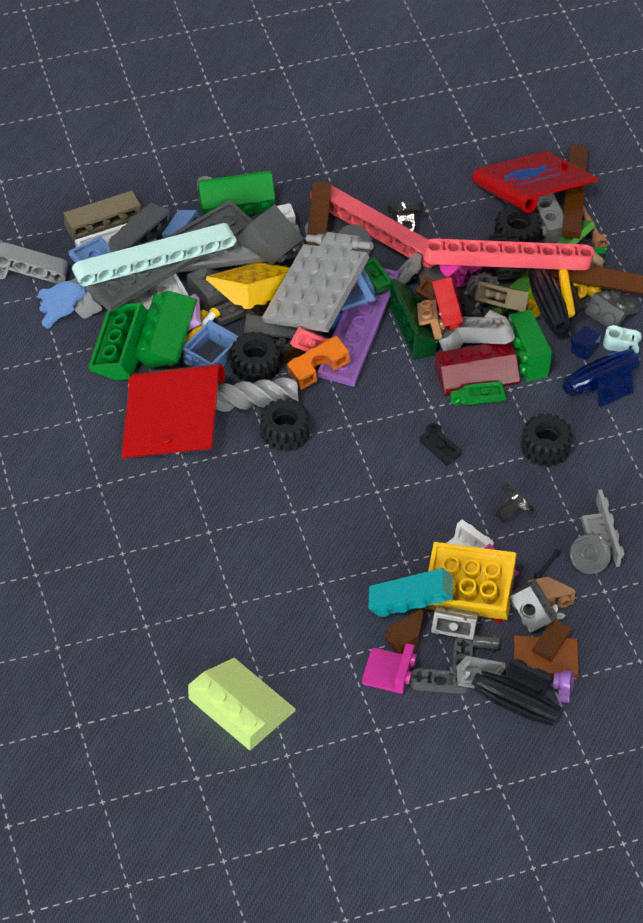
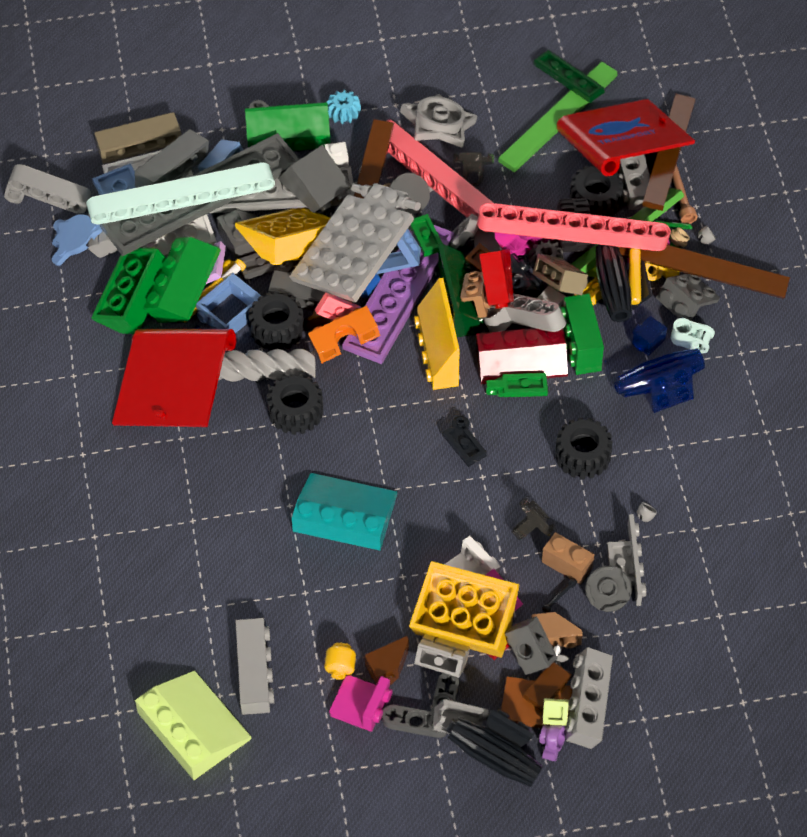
camera: 10 degrees right, 5 degrees up
(283, 175) = (343, 107): none -> medium azure gear
(287, 648) = (252, 666): none -> light grey brick
(343, 512) = (343, 511): none -> teal slope
(364, 636) = (340, 660): none -> yellow head
(368, 179) = (439, 119): none -> light grey plate
(404, 357) = (438, 338): none -> yellow slope
(411, 592) = (396, 617): teal brick -> none
(463, 179) = (546, 127): none -> bright green tile
(475, 136) = (569, 76): none -> dark green tile
(486, 642) = (474, 681): dark grey pin -> none
(549, 532) = (567, 558): none -> medium nougat brick
(564, 659) = (555, 712): none -> yellowish green tile
(590, 646) = (598, 666): none -> light grey brick
(610, 488) = (646, 512): none -> light grey hinge
(618, 258) = (706, 235): none -> light grey hinge

